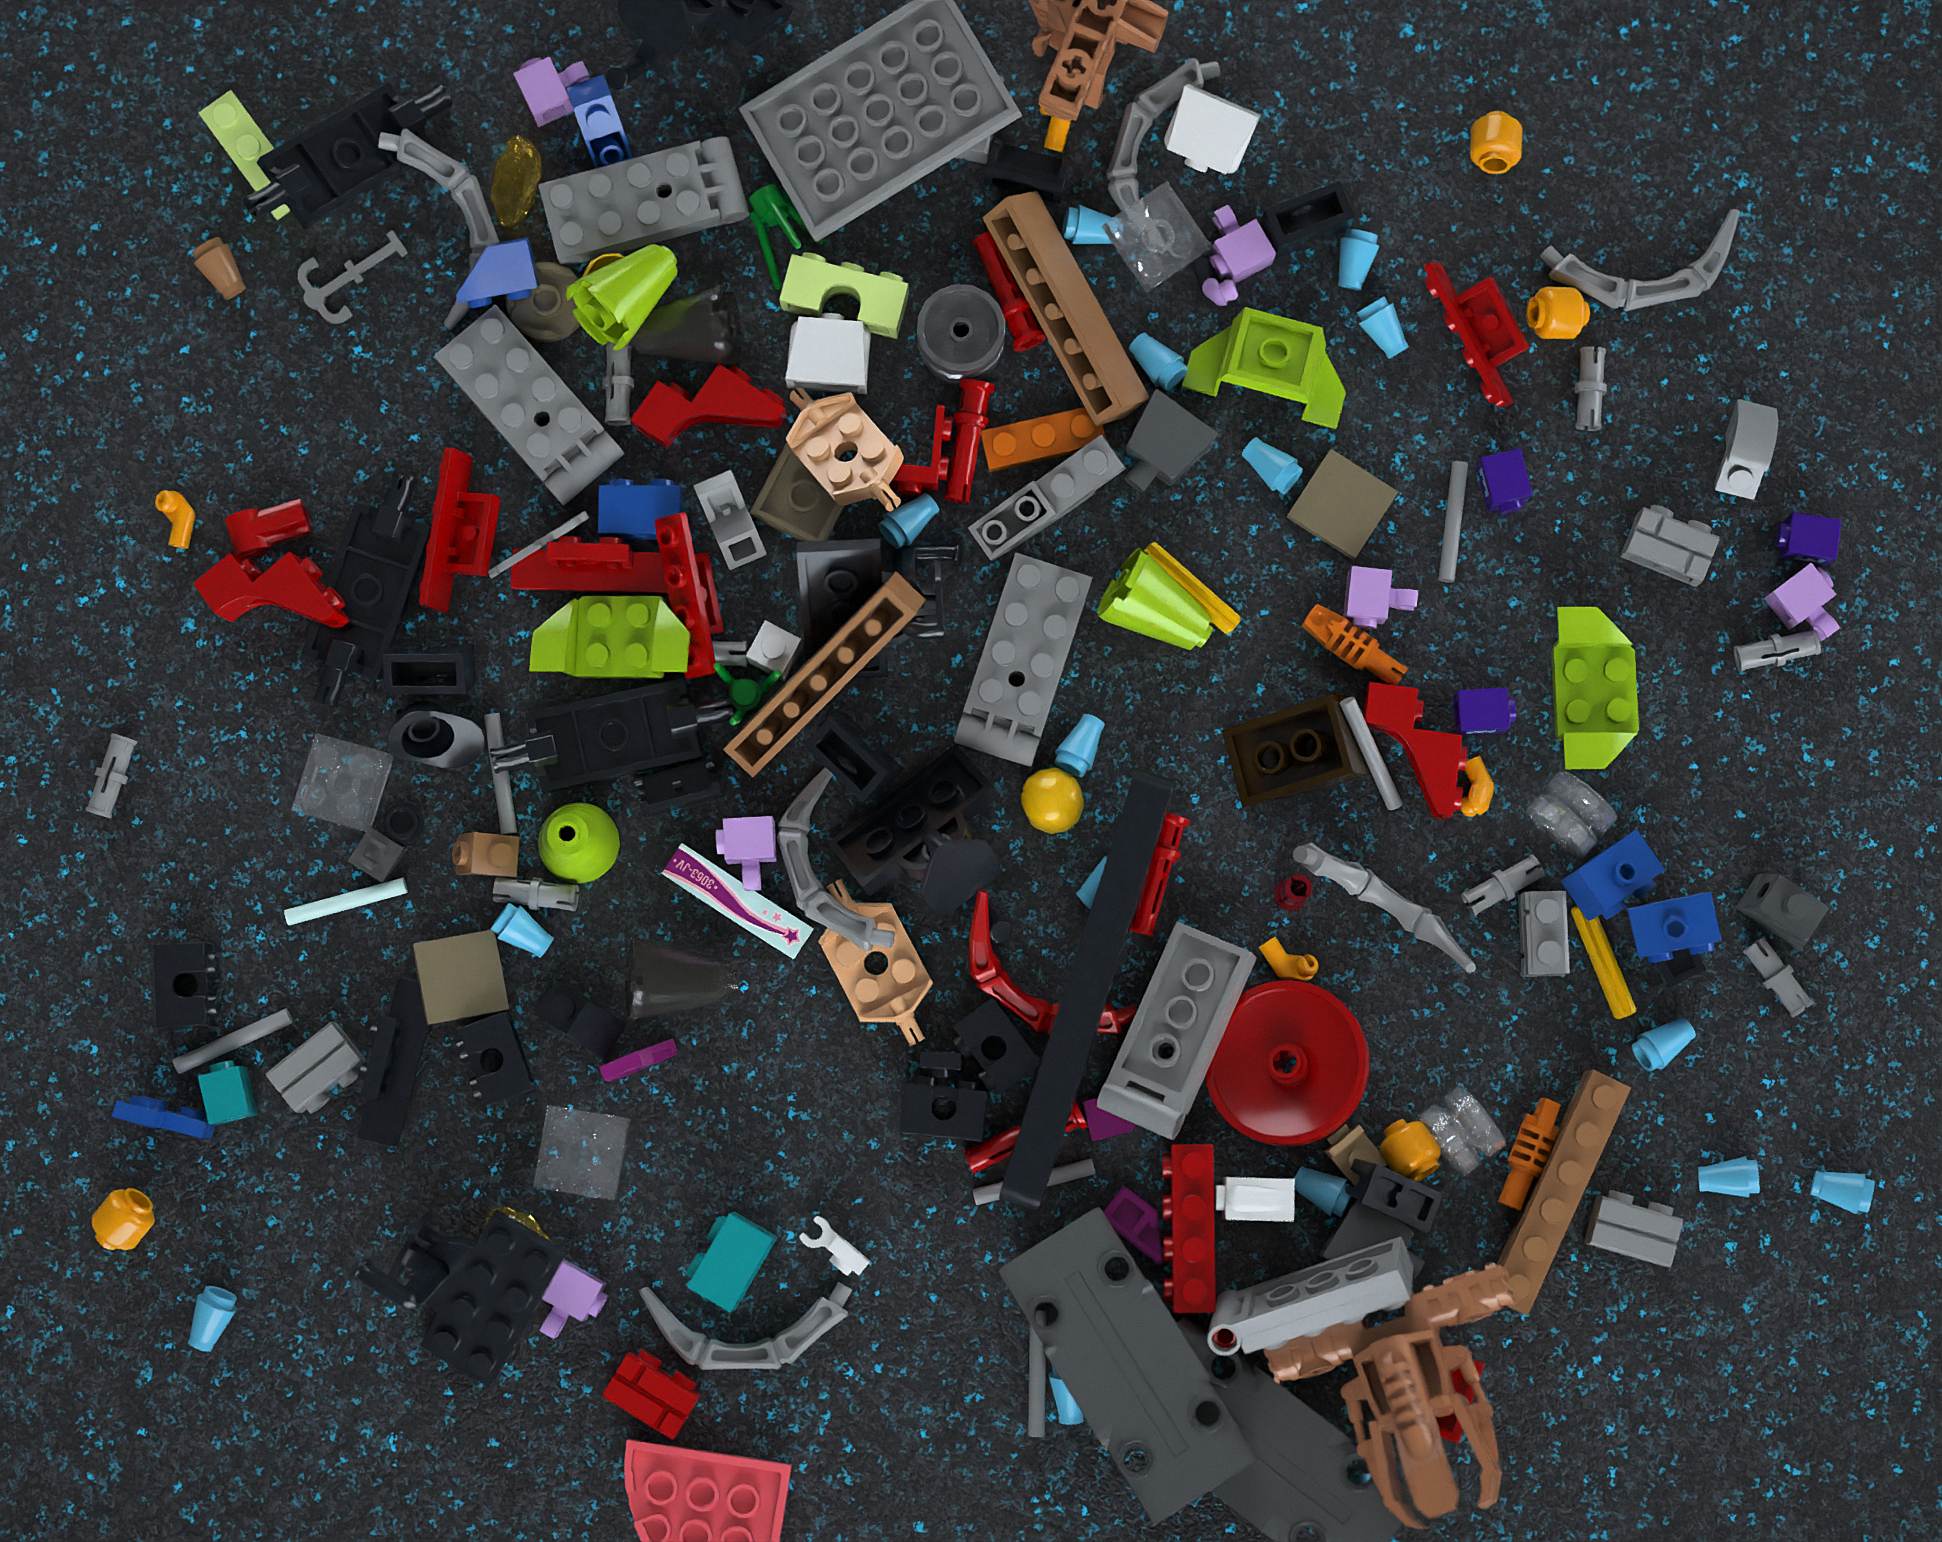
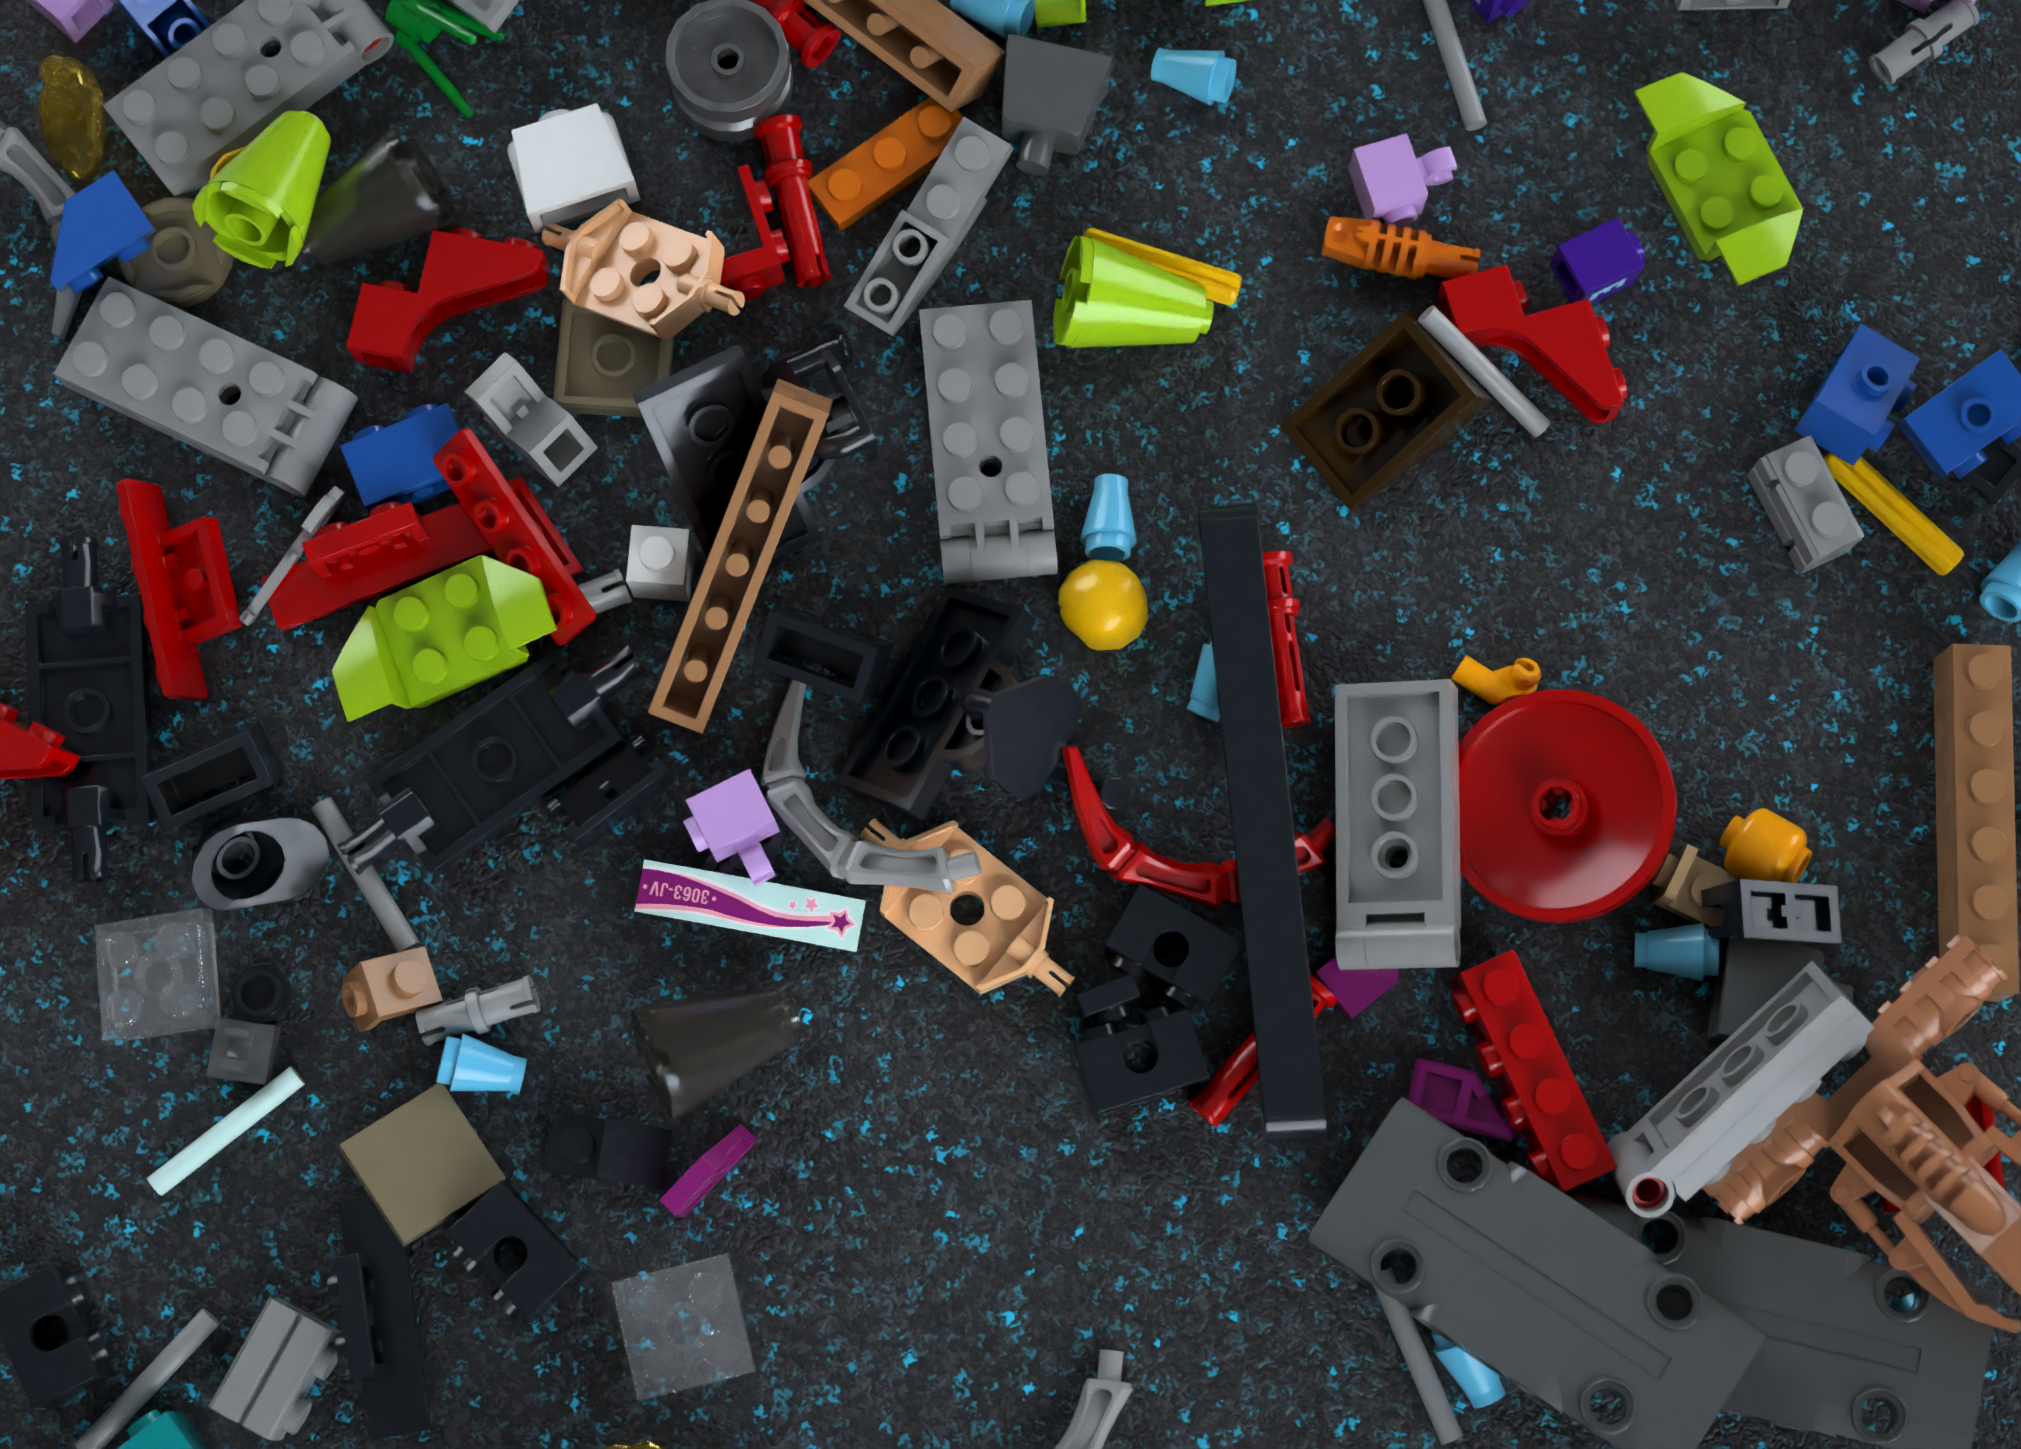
camera: 25 degrees left, 5 degrees down
(591, 849) = (507, 921): lime cone -> none
(618, 385) = (312, 314): light grey pin -> none
(730, 1261) = (947, 1381): teal brick -> none
(745, 693) = (646, 633): green plant -> none
(813, 281) = (514, 83): yellowish green arch -> none
(844, 1255) = (1095, 1310): white plate -> none
(907, 521) = (764, 329): medium azure cone -> none
(1059, 1175) = (1332, 1078): light grey bar -> none
(1255, 1199) = (1602, 995): white torso -> none
(1296, 900) = (1469, 580): dark red pin -> none
(1342, 504) = (1304, 87): dark tan tile -> none
(1372, 889) = (1558, 542): light grey animal -> none
(1462, 1130) = (1823, 793): clear wheel -> none
(1481, 789) = (1640, 362): light orange arm -> none
(1503, 885) = (1723, 468): light grey pin -> none
(1530, 1152) = (1917, 788): orange hinge -> none
(1571, 814) = (1771, 339): clear wheel -> none

